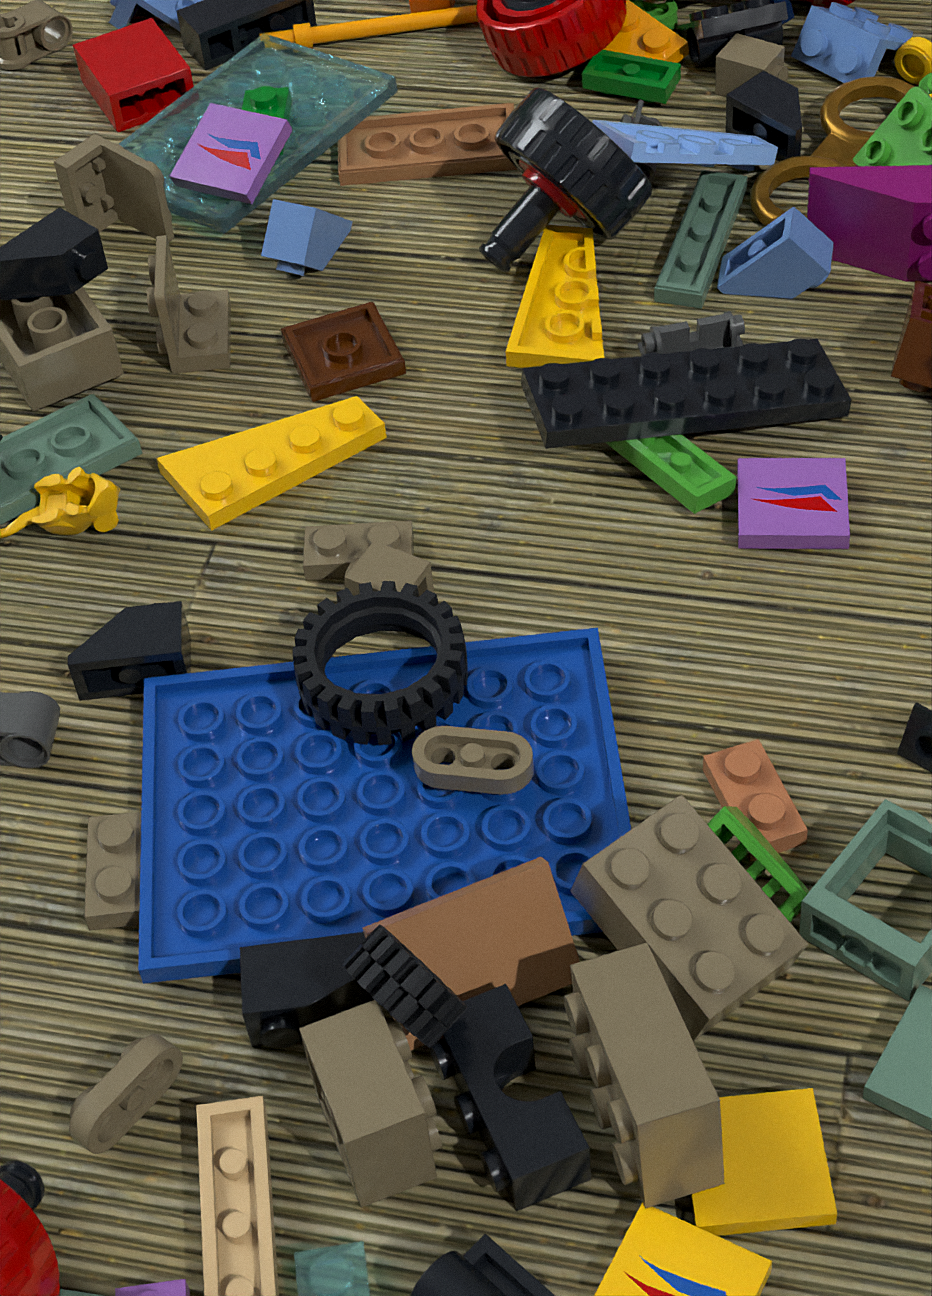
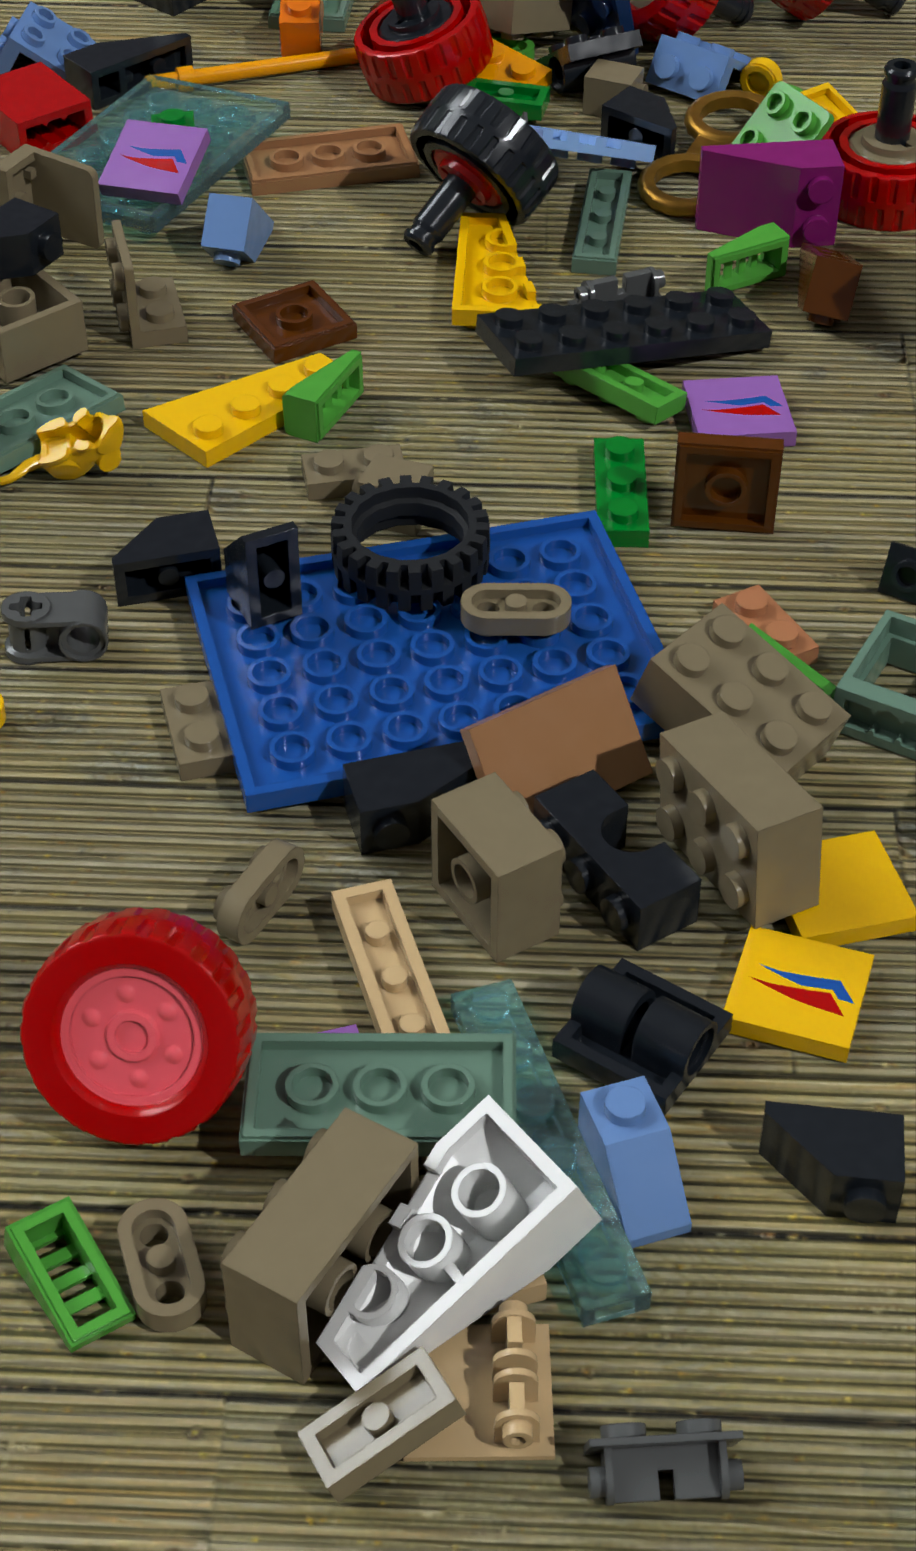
camera: 15 degrees left, 5 degrees down
(213, 700) = (265, 575): none -> black slope
(345, 456) = (323, 397): none -> bright green slope
(404, 986) = (518, 758): black tyre -> none
(637, 599) = (621, 490): none -> green plate
(744, 609) = (726, 482): none -> reddish brown tile
(778, 260) = (678, 230): medium blue slope -> none
(866, 297) = (770, 264): none -> bright green slope

